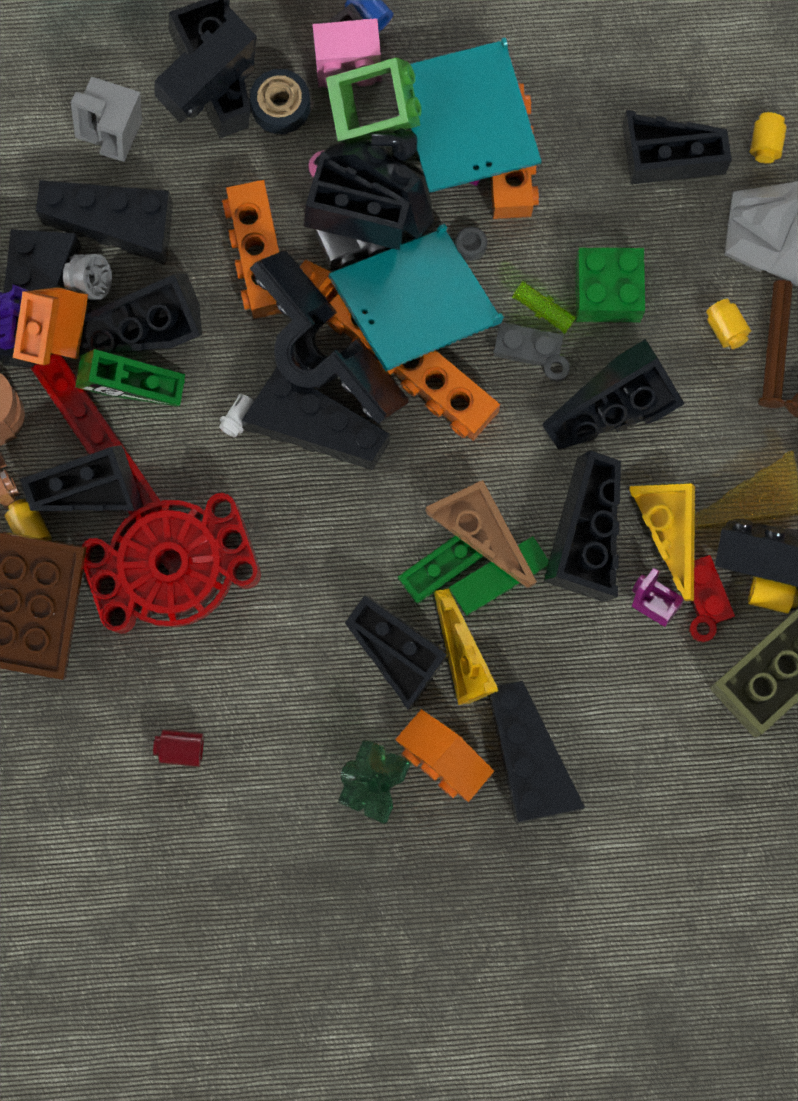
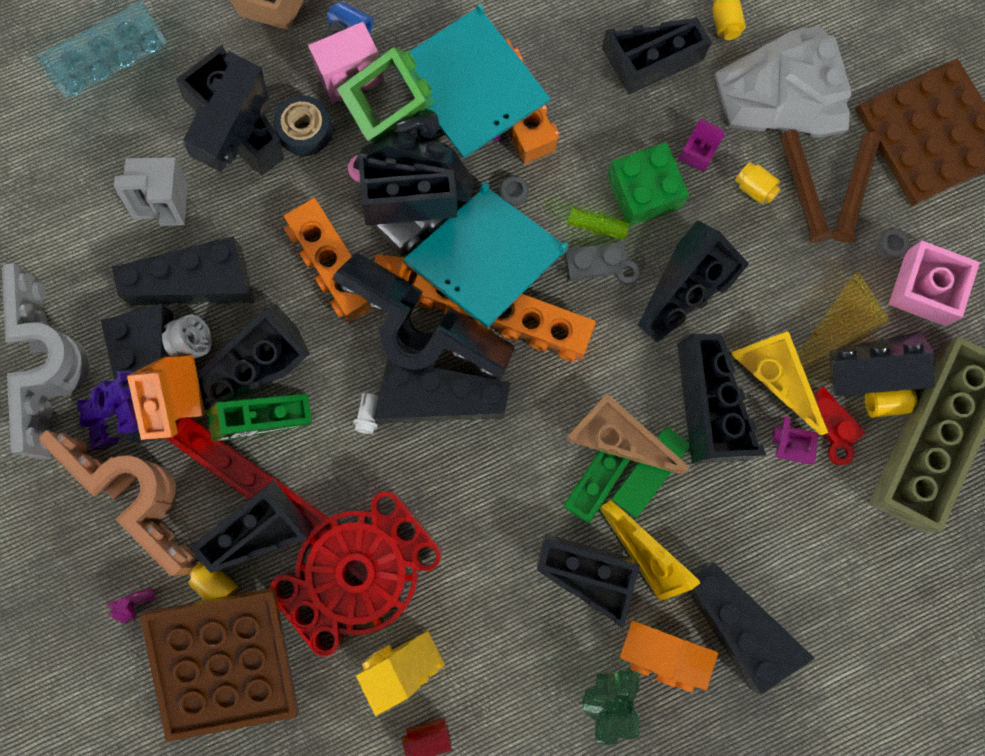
camera: 25 degrees left, 0 degrees up
(177, 664) = (397, 673): none -> yellow wedge
(683, 264) = (702, 145): none -> magenta bracket

